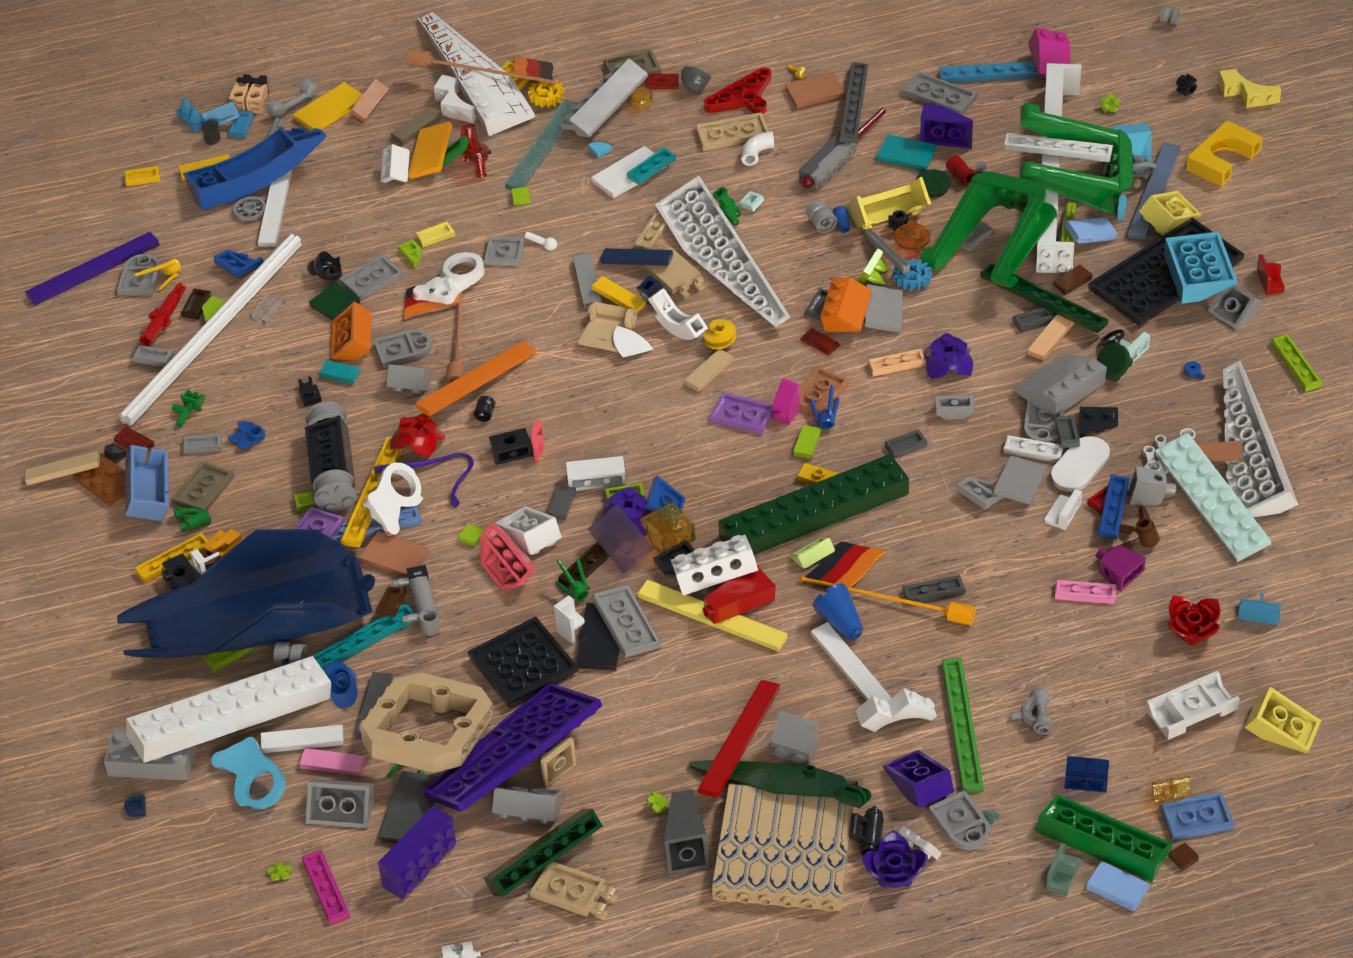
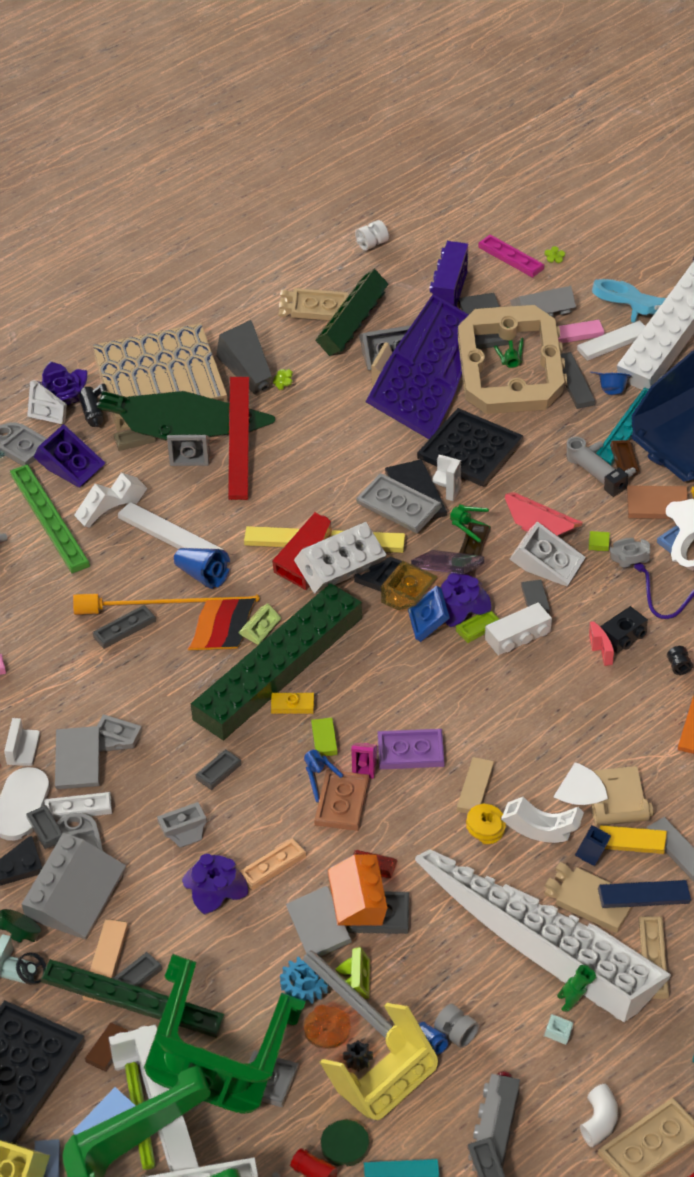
camera: 155 degrees right, 0 degrees up
(461, 516) = (629, 551): none -> light grey plate

